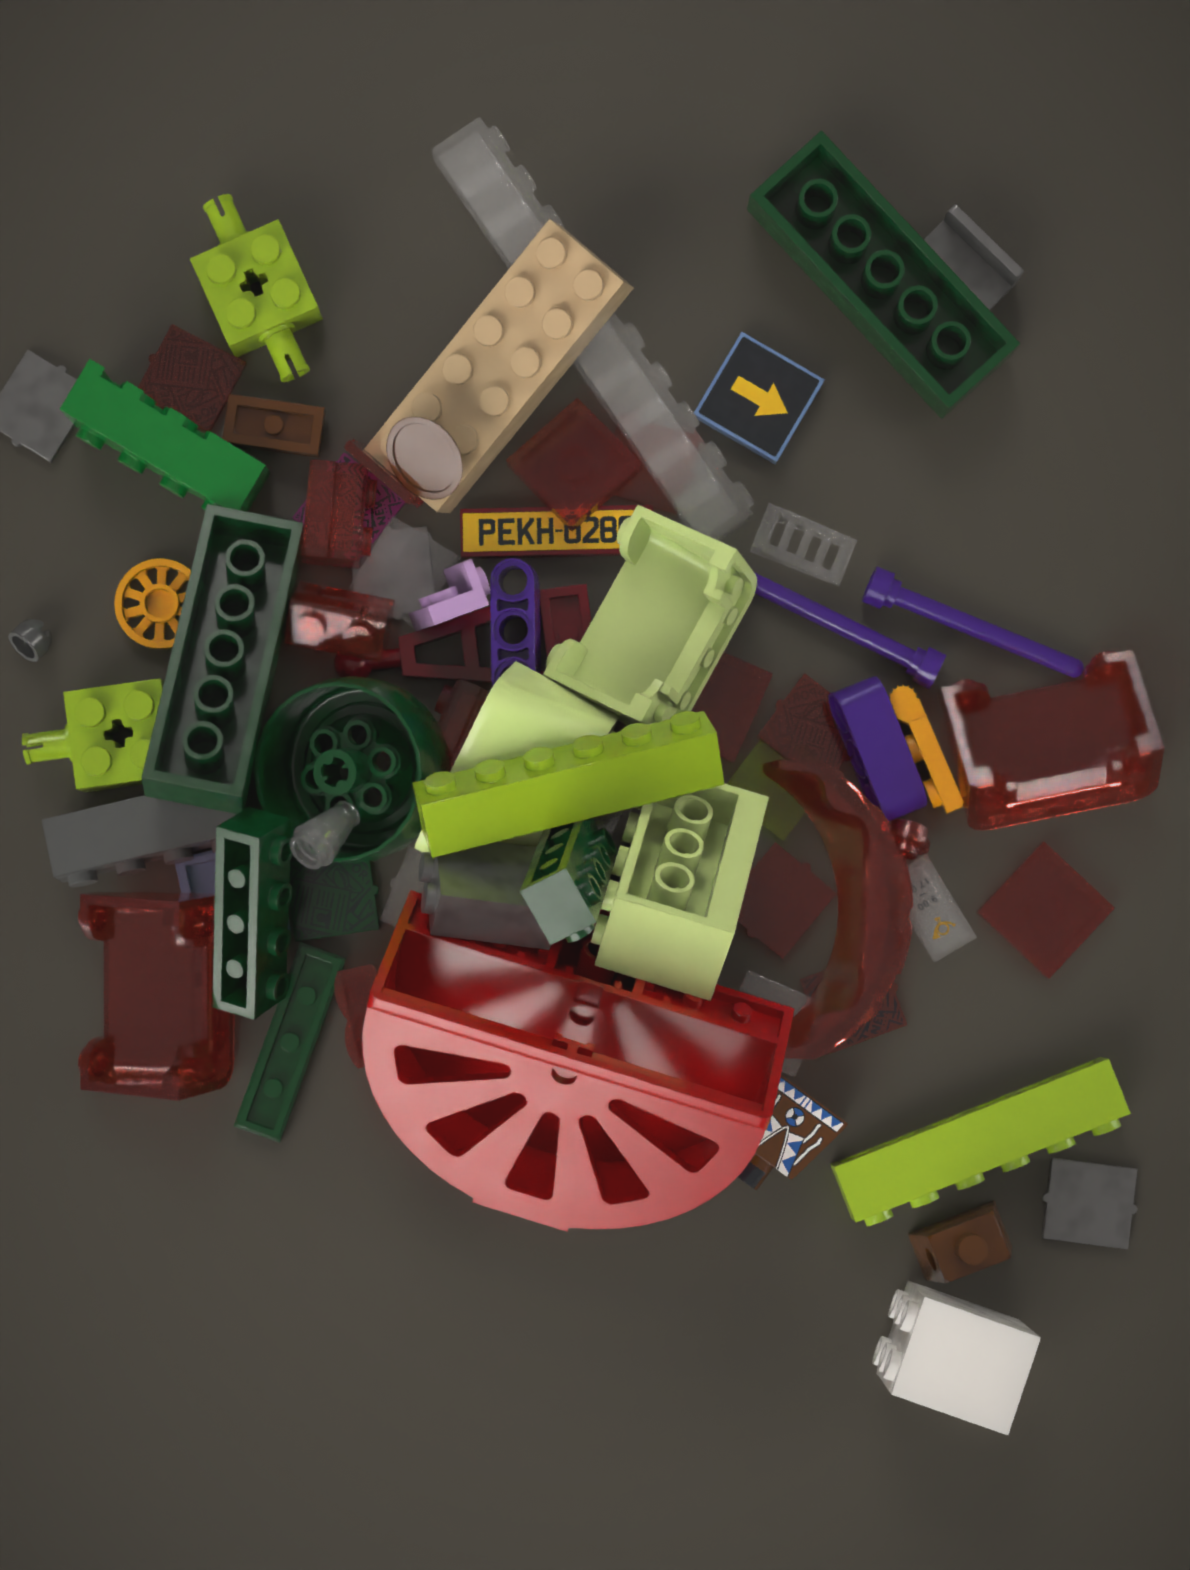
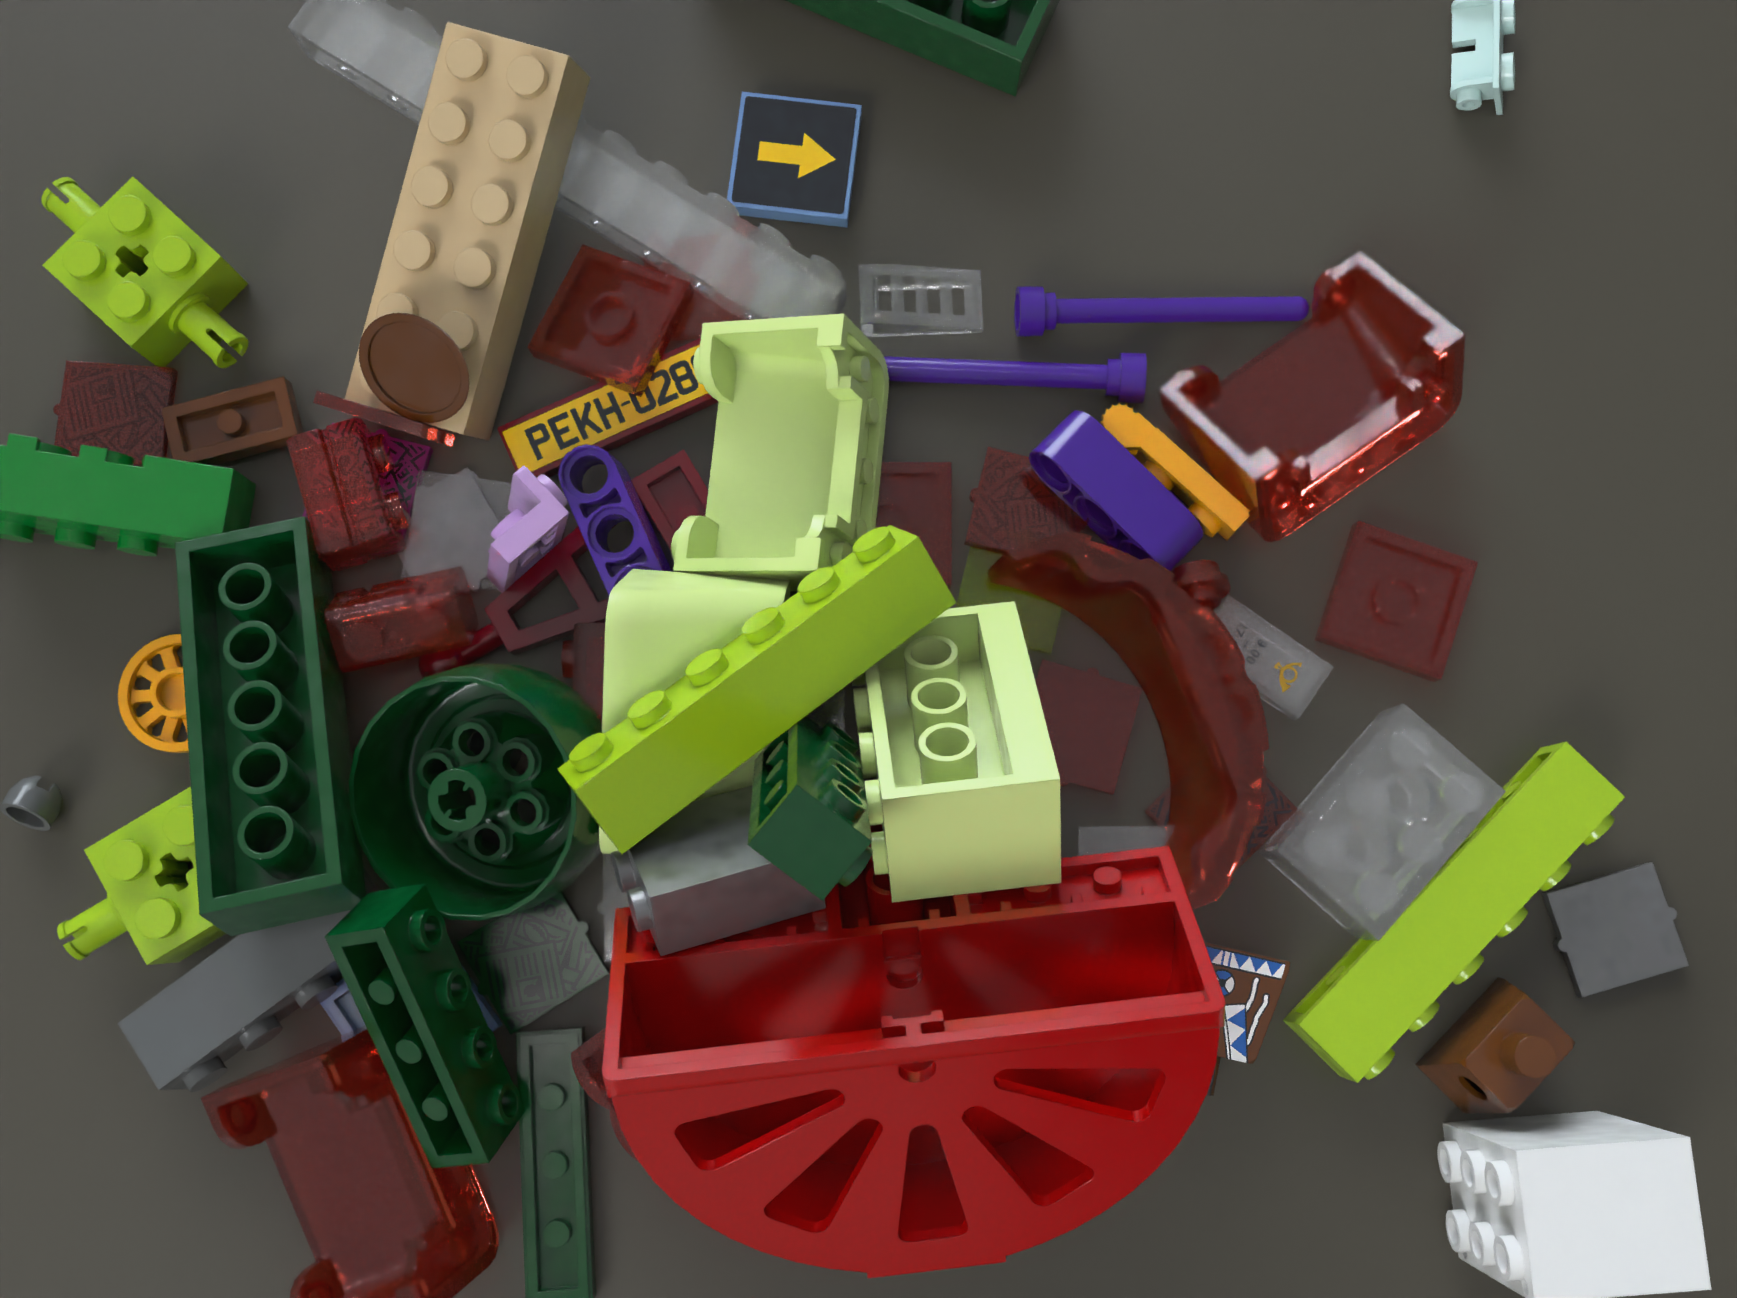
camera: 20 degrees left, 5 degrees down
(321, 838) = (476, 888): clear cone -> none
(957, 1058) = (1382, 822): none -> clear brick

